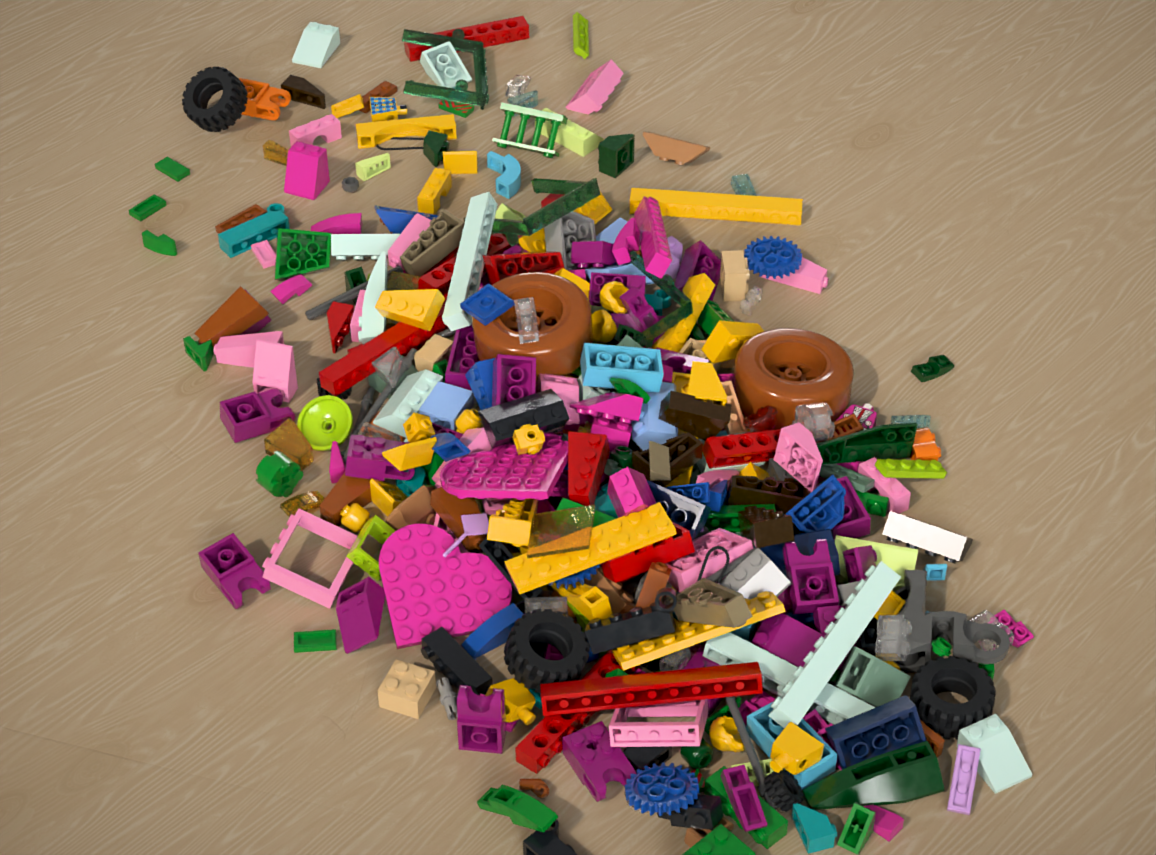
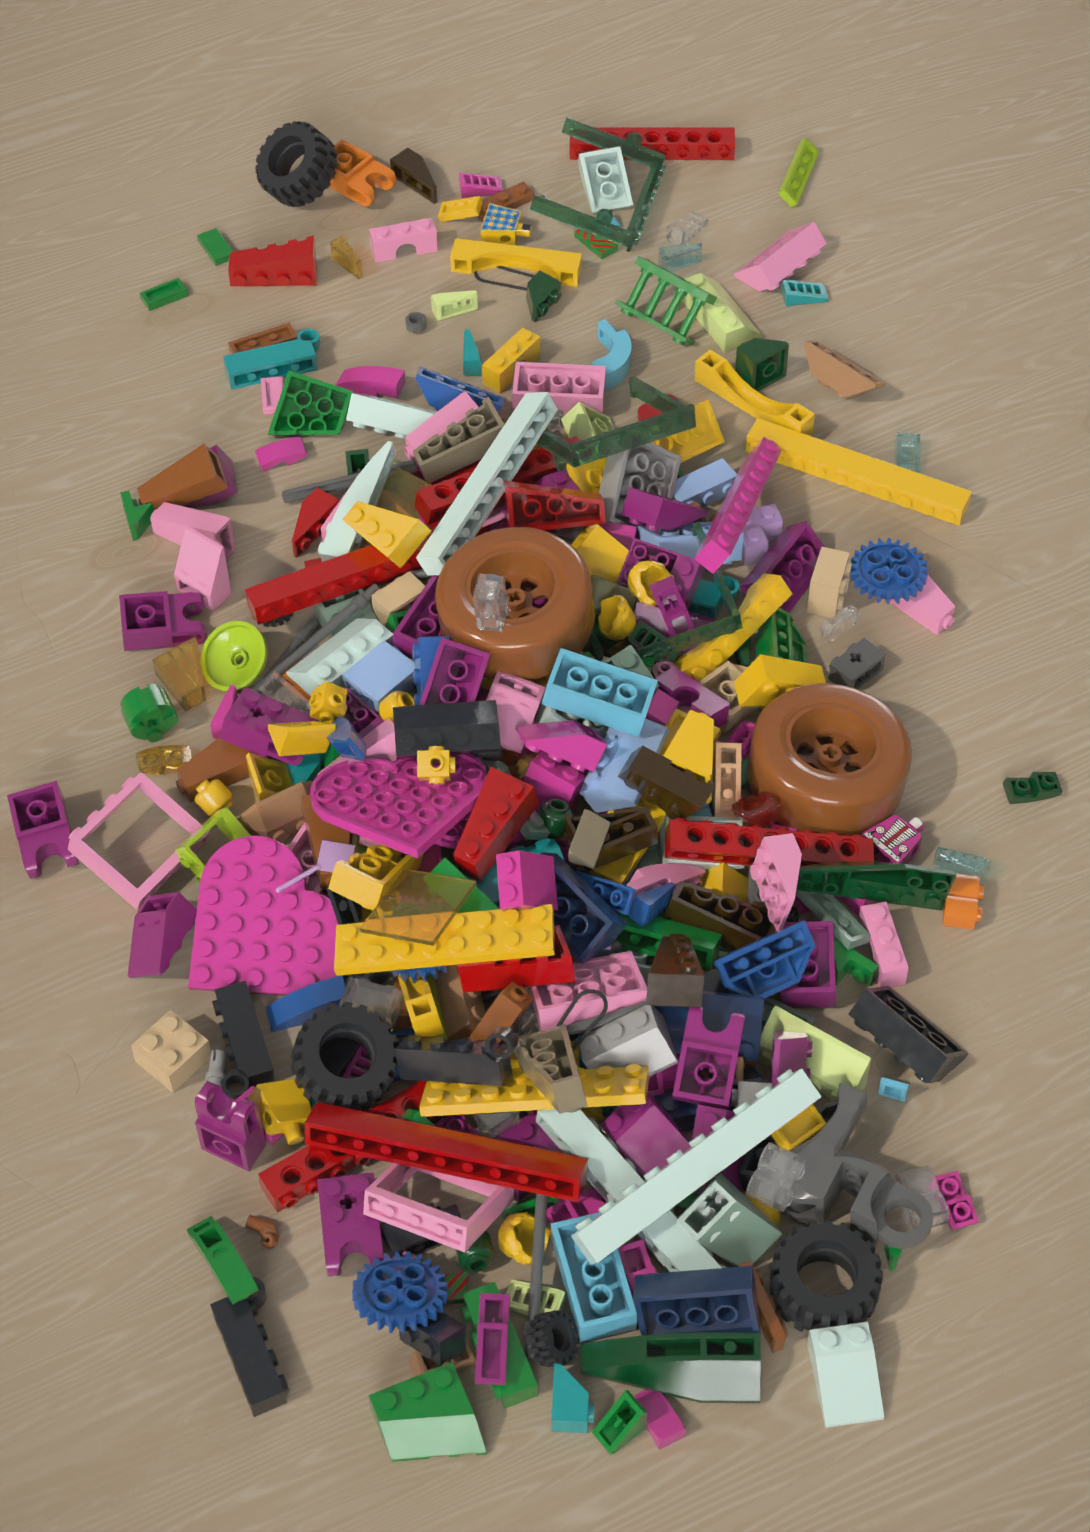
camera: 20 degrees right, 10 degrees up
(161, 244) = (155, 350): green slope -> none
(227, 169) = (275, 265): none -> red wedge
(306, 170) = (365, 292): dark pink slope -> none
(315, 641) = (99, 949): green tile -> none
(316, 44) = (462, 110): light aqua slope -> none
(351, 89) = (478, 185): none -> dark pink slope
(388, 366) = (333, 603): clear slope -> none
(403, 196) = (471, 357): none -> teal slope
(458, 198) = (564, 383): none -> bright pink slope
(461, 162) = (562, 326): yellow slope -> none
(487, 304) = (460, 561): blue tile -> none
(588, 167) = (720, 377): none -> yellow arch
(620, 108) = (797, 292): none -> teal slope
(626, 242) = (701, 503): dark pink slope -> none
(627, 387) = (595, 726): green slope -> none
(778, 318) = (857, 664): none -> dark grey brick
(795, 750) = (579, 1295): yellow torso -> none
(816, 419) = (818, 835): clear brick -> none
(850, 420) = (867, 841): dark orange slope -> none
(910, 468) = (926, 931): lime plate -> none
(941, 647) = (835, 1208): green plate -> none
(963, 779) = (787, 1398): lavender tile -> none

